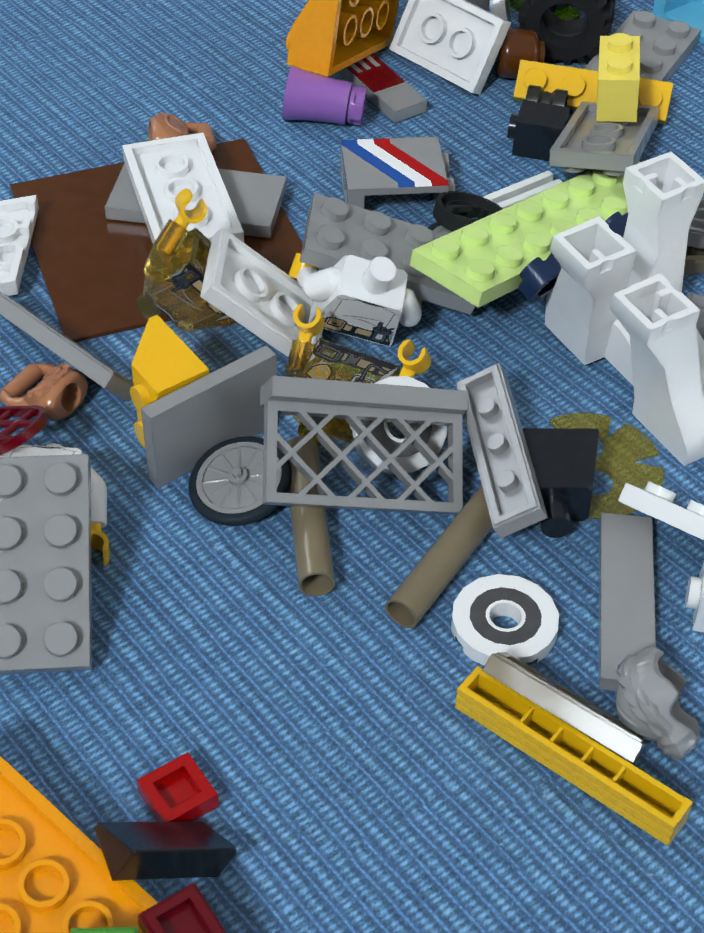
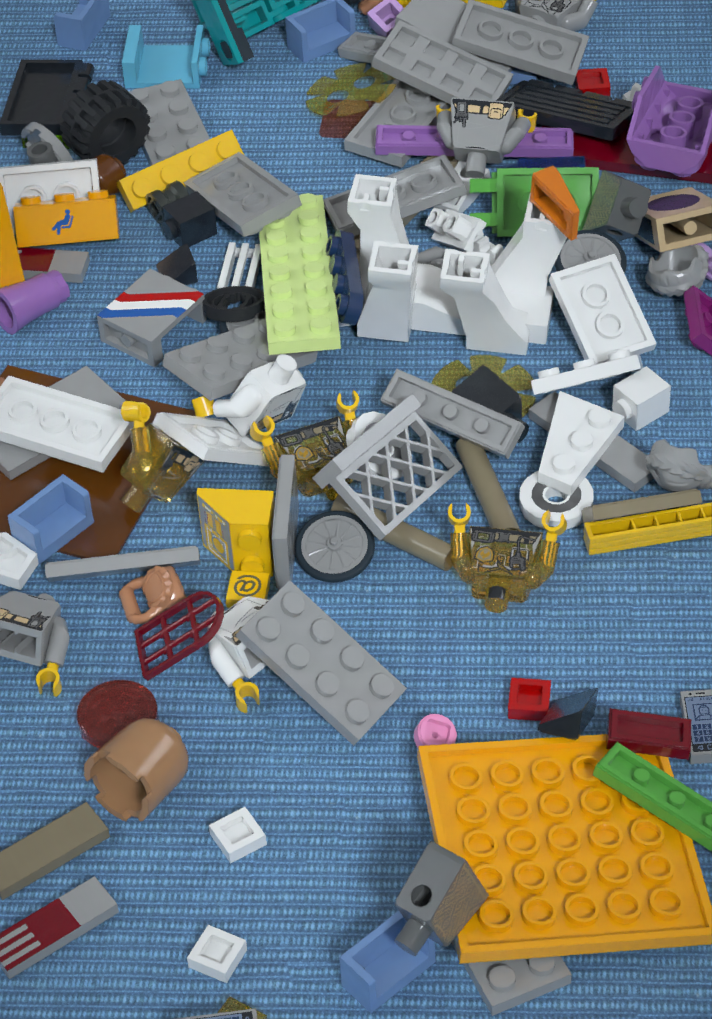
camera: 45 degrees left, 0 degrees up
(39, 736) = (435, 730): none -> bright pink tile
(63, 262) = (52, 517): none -> medium blue panel
(117, 453) = (247, 584): none -> yellow tile
(349, 629) = (503, 562): none -> clear yellow torso
(439, 61) = (66, 219): none -> light orange brick
(478, 162) = (179, 266): none -> black slope
(594, 582) = (576, 442): none -> white wing
(618, 78) = (213, 150): light yellow piece -> none

